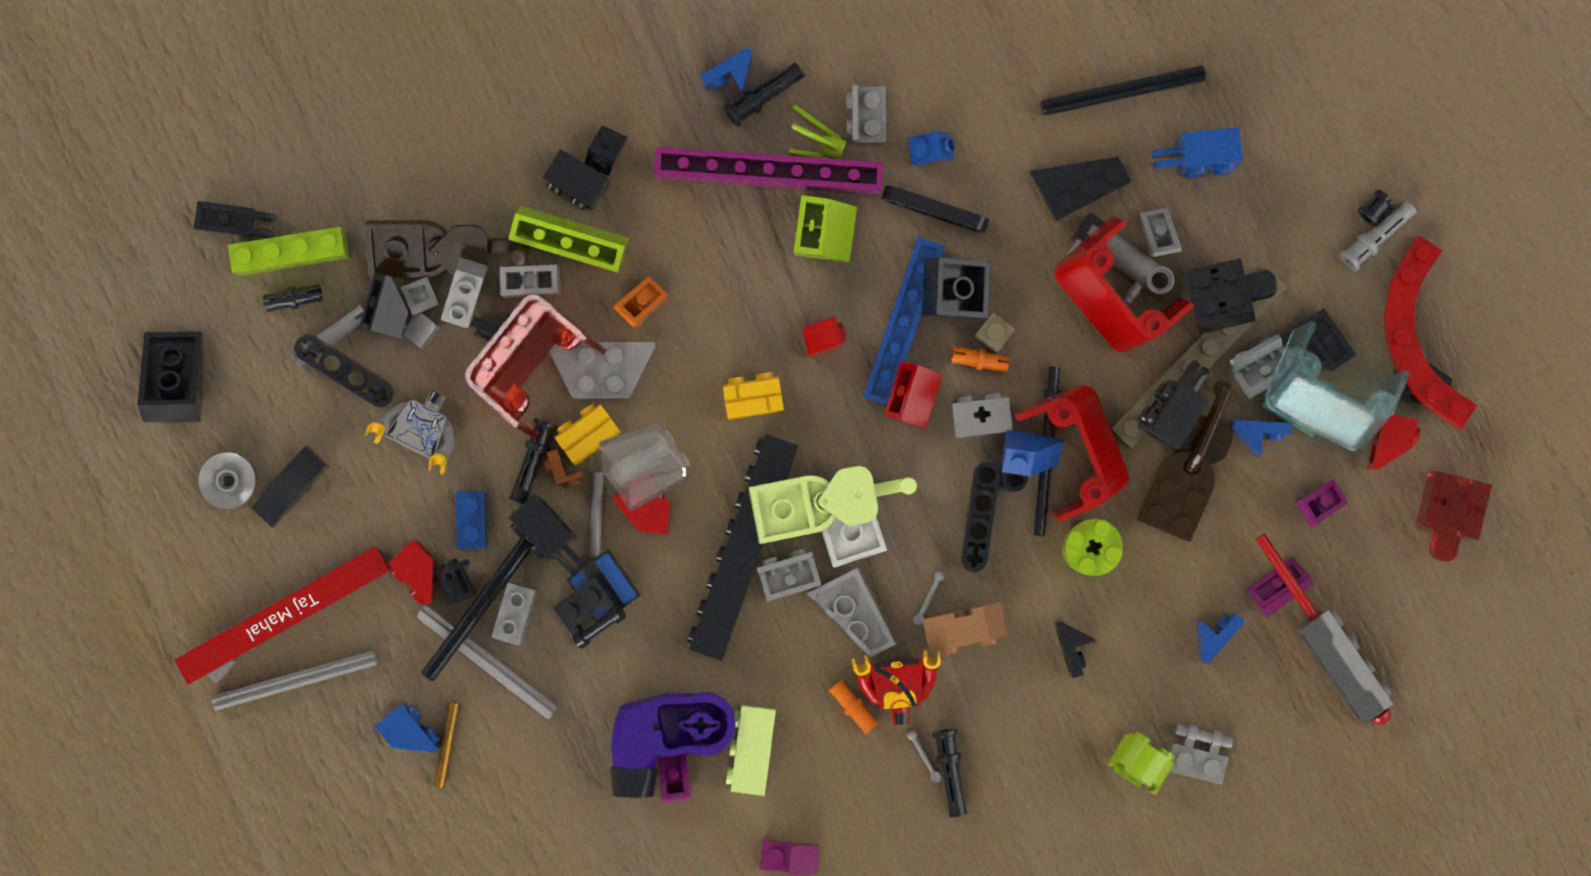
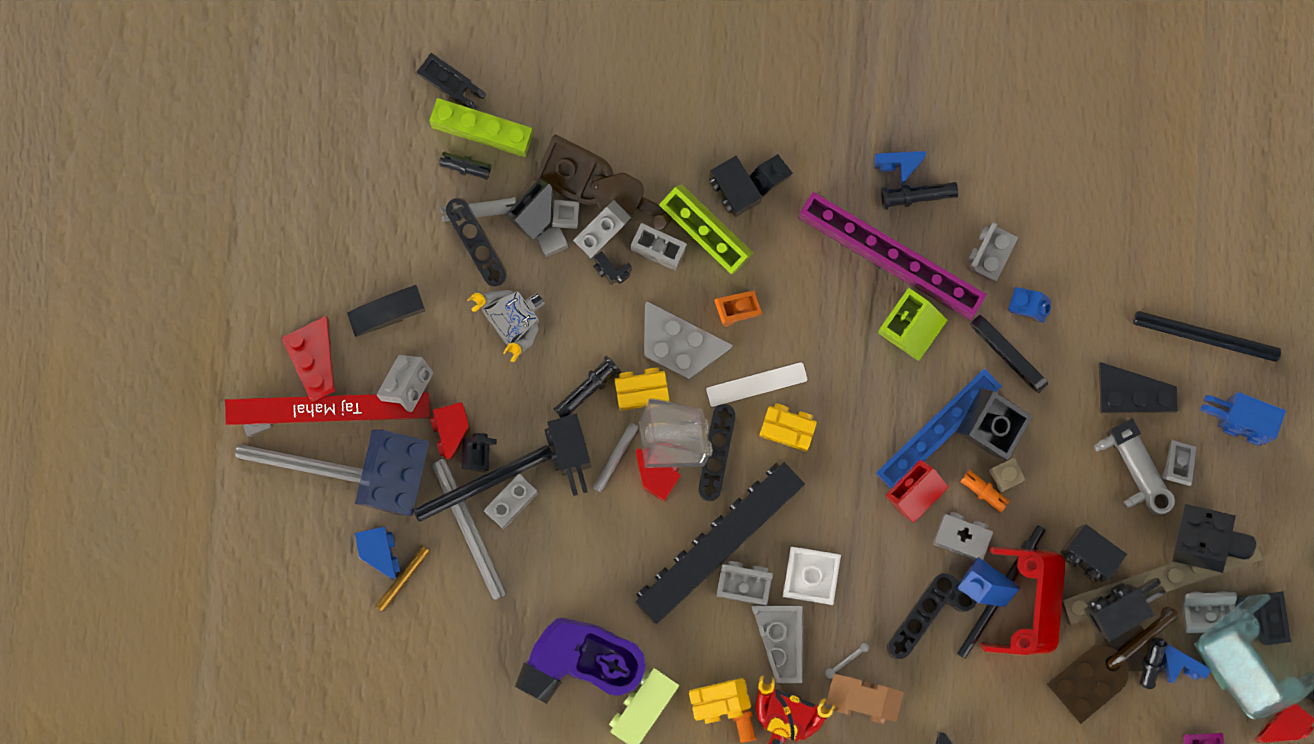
camera: 25 degrees right, 5 degrees down
(171, 377) = (338, 179): black slope -> none
(213, 477) = (335, 269): light grey dish -> none
(239, 572) = (311, 356): none -> red wing
(347, 548) = (405, 381): none -> light grey bracket
(380, 646) = (392, 472): none -> dark blue brick
(471, 520) = (514, 410): blue plate -> none
(517, 352) = (620, 296): clear red windscreen -> none
(556, 467) = (603, 402): dark orange bracket -> none
(583, 604) = (571, 522): black plate -> none
(613, 576) = (592, 517): piece -> none
(674, 778) = (570, 697): magenta slope -> none
(699, 368) = (756, 384): none -> white sticker
(699, 456) = (717, 452): none -> black beam
(791, 510) = (774, 531): yellowish green plate -> none
(822, 703) = (720, 699): none -> yellow brick
(824, 337) = (869, 408): red slope -> none
(831, 145) = (952, 260): lime plant -> none
(1078, 539) = (1014, 683): lime brick -> none
(1083, 282) = (1103, 492): red windscreen -> none
(1118, 368) = (1093, 554): none -> black brick
(1231, 446) = (1153, 663): none -> black pin

